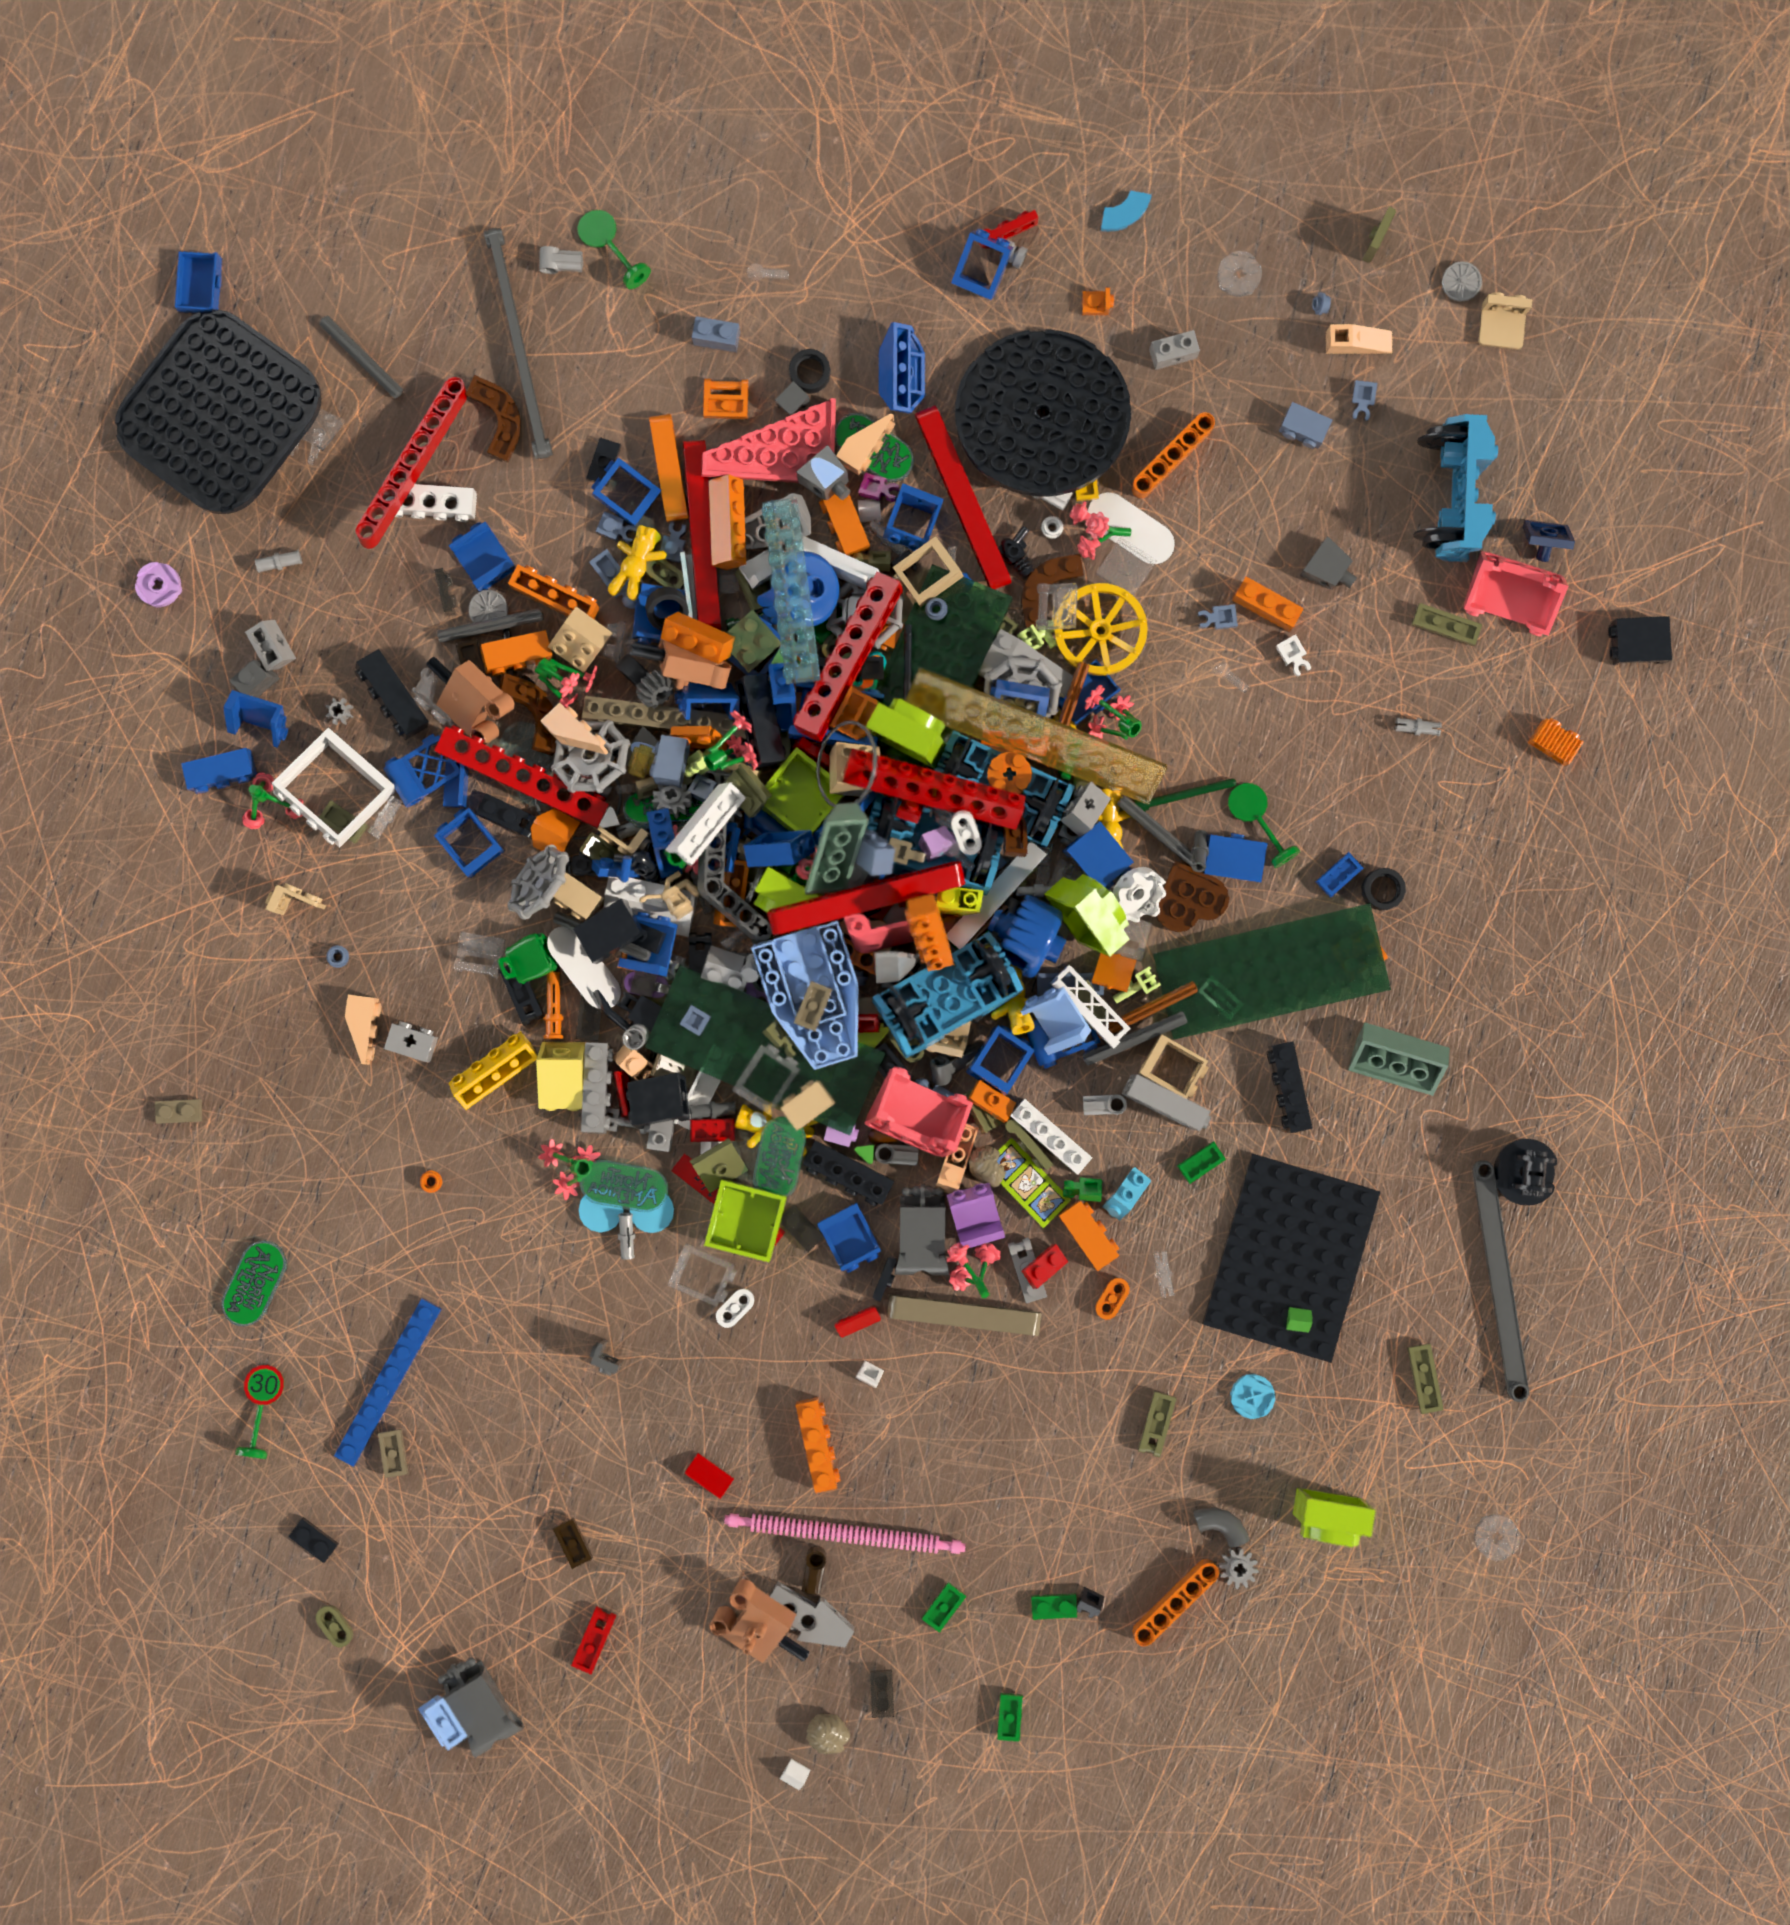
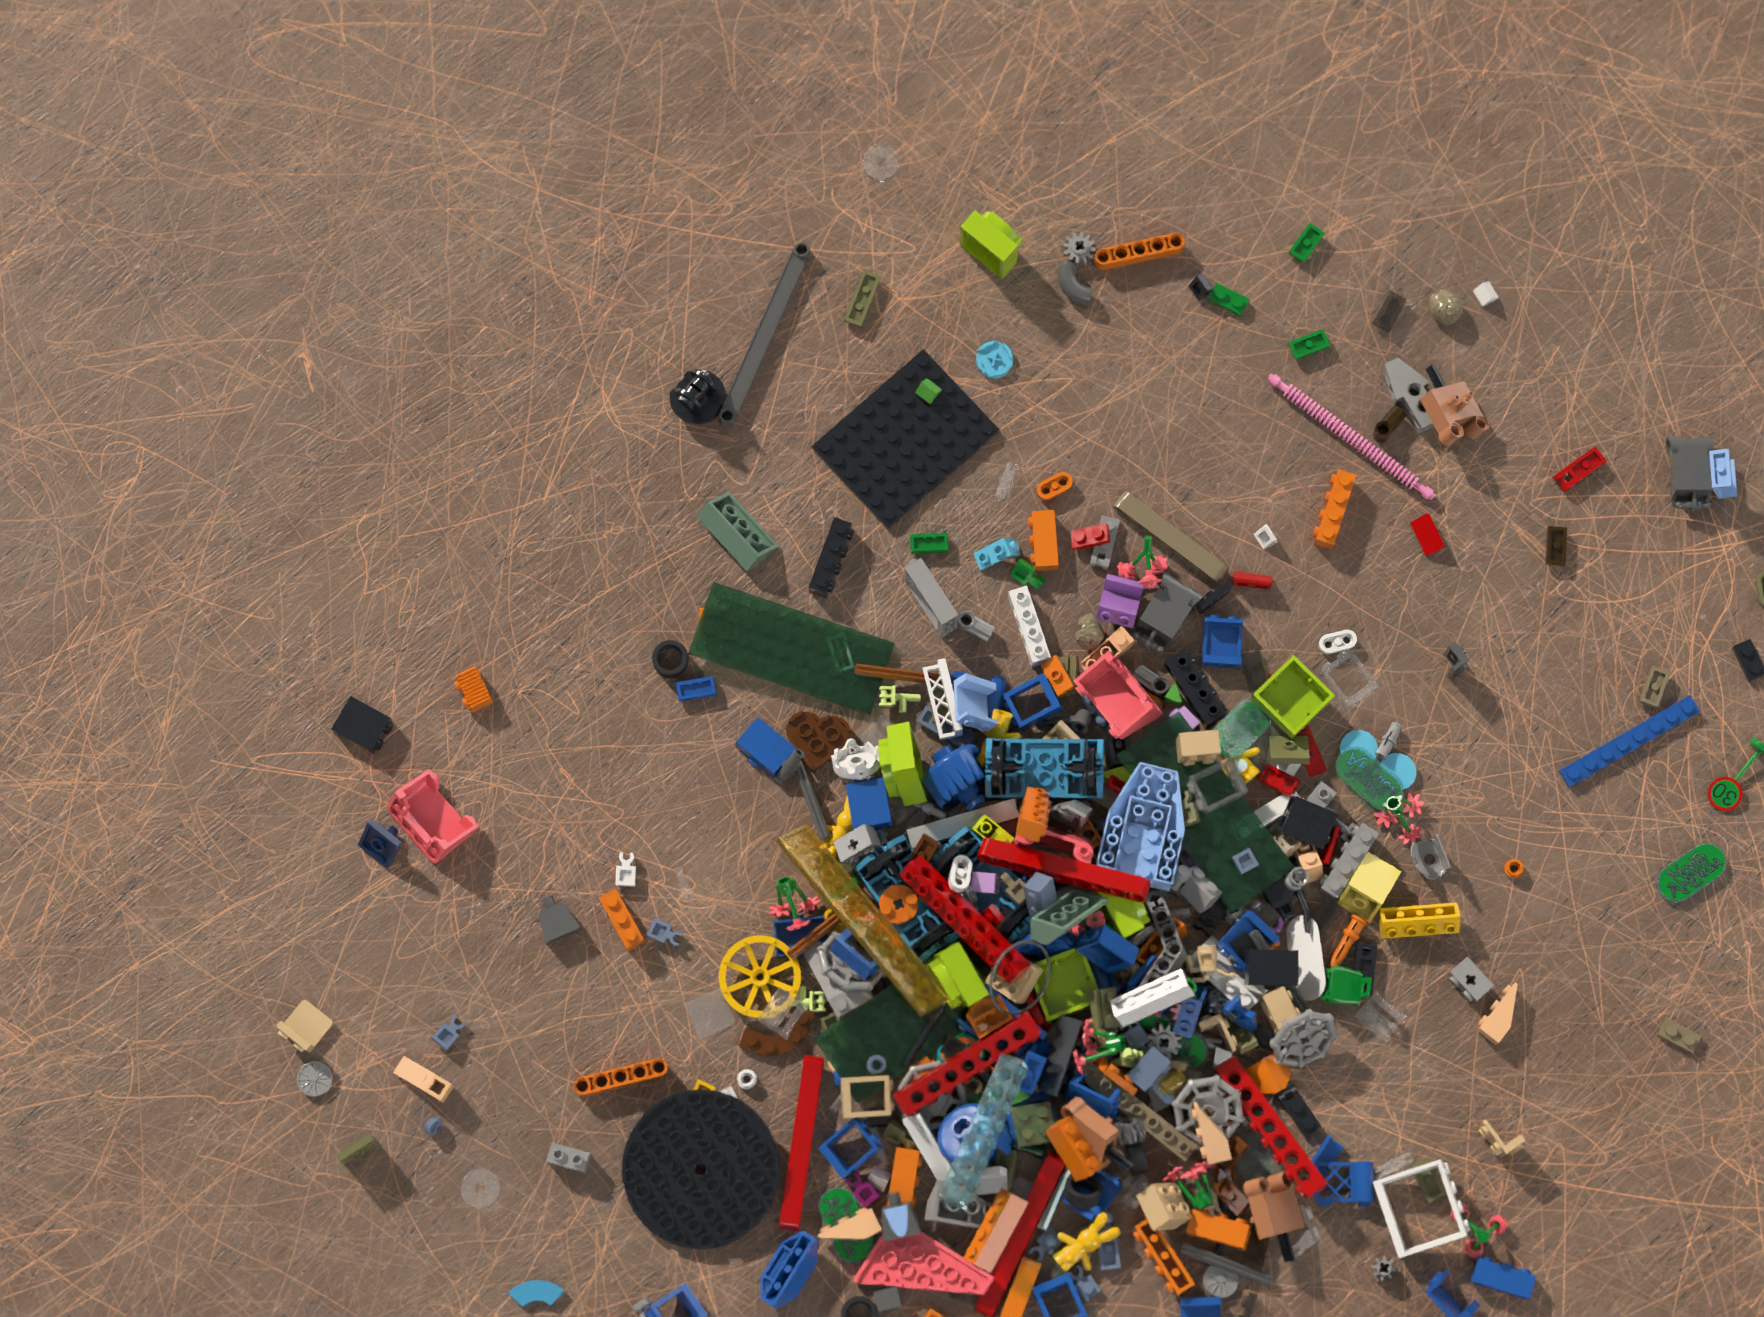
camera: 145 degrees left, 10 degrees down
(331, 956) = (1494, 1075): sand blue plate -> none
(391, 694) = (1335, 1255): black brick -> none
(482, 860) = (1340, 1085): blue window -> none
(516, 1126) = (1433, 847): none -> light grey piece
(665, 573) = (1067, 1223): olive plate -> none
(712, 1110) = (1269, 794): dark grey pin -> none
(813, 1006) = (1151, 815): dark tan plate -> none
(952, 849) = (978, 870): clear bar -> none
(1014, 552) = (788, 1076): black piece -> none
(1027, 1143) = (1049, 631): olive plate -> none
(1030, 1184) = (1064, 602): sticker -> none
(1096, 526) = (715, 1052): coral plant -> none
(1097, 302) = (603, 1233): orange bracket -> none
(1114, 972) = (909, 711): orange piece -> none
(1136, 1038) = (921, 659): dark grey axle -> none
(1145, 531) = (688, 1051): white sticker -> none
(1157, 1423) = (1075, 380): olive plate -> none
(1188, 793) = (770, 816): dark green piece -> none
(1200, 1070) = (917, 638): tan window -> none
(1248, 804) = (729, 782): green piece -> none
(1305, 426) = (506, 1038): sand blue brick -> none
(1418, 726) = (567, 762): light grey pin -> none
(1446, 624) = (497, 824): olive plate -> none
(1468, 449) = (440, 884): dark azure piece -> none

